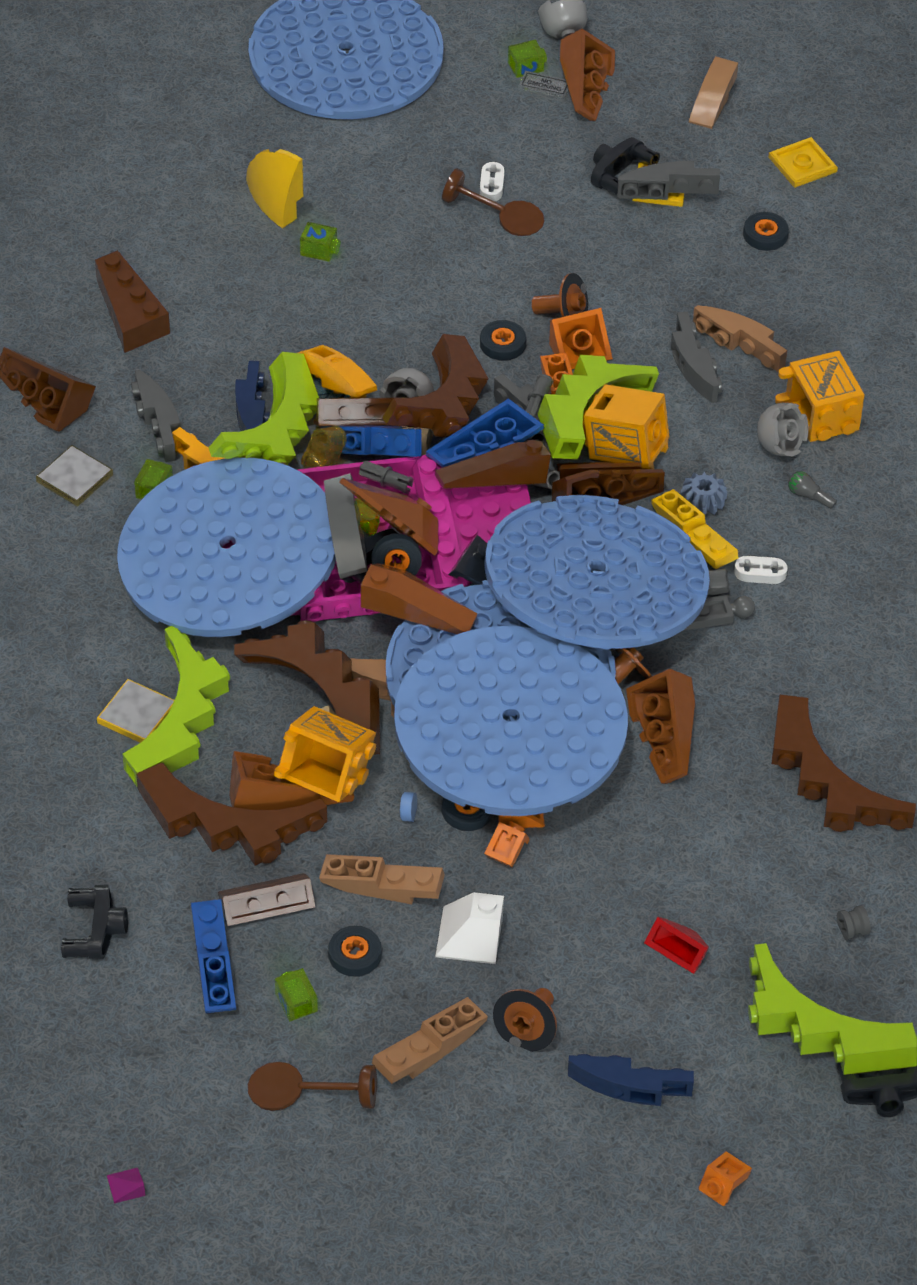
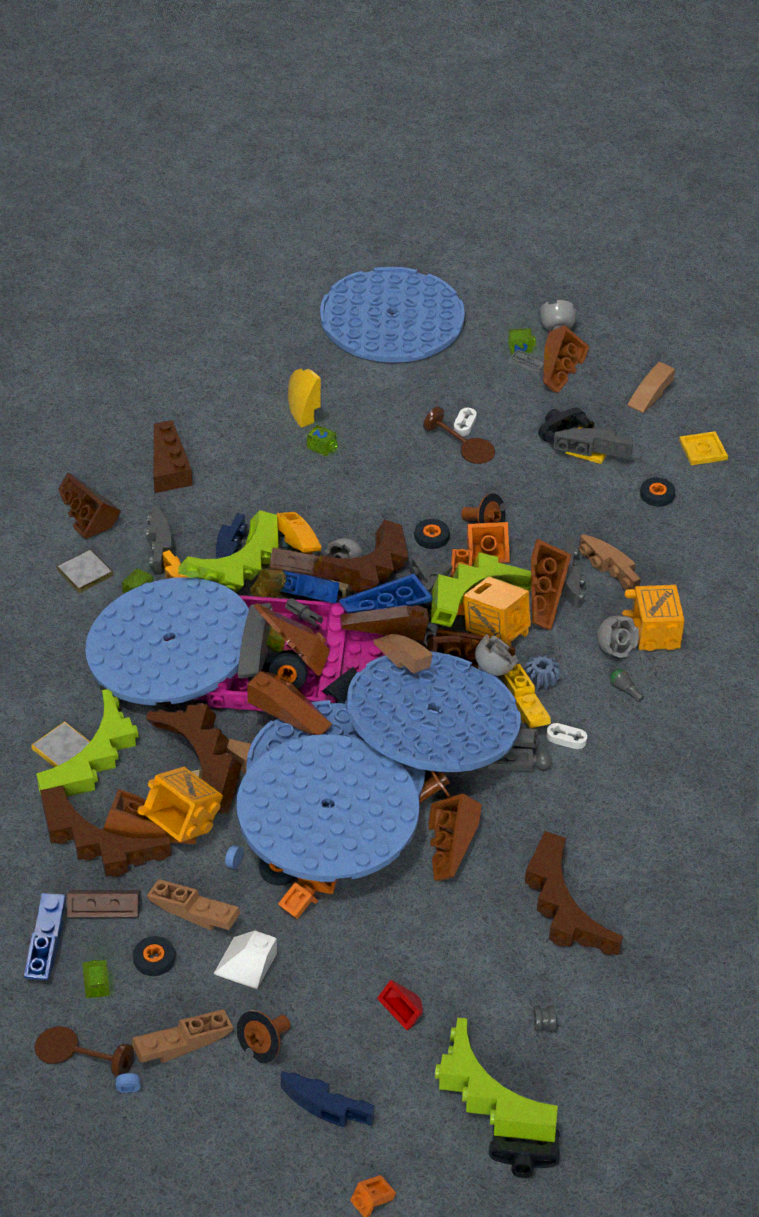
camera: 15 degrees right, 5 degrees down
(384, 1112) = (128, 1083): none -> medium blue tile
(537, 503) = (405, 652): none -> medium nougat slope
(644, 487) = (493, 656): none -> light grey cylinder
(675, 366) = (548, 575): none -> dark orange wedge

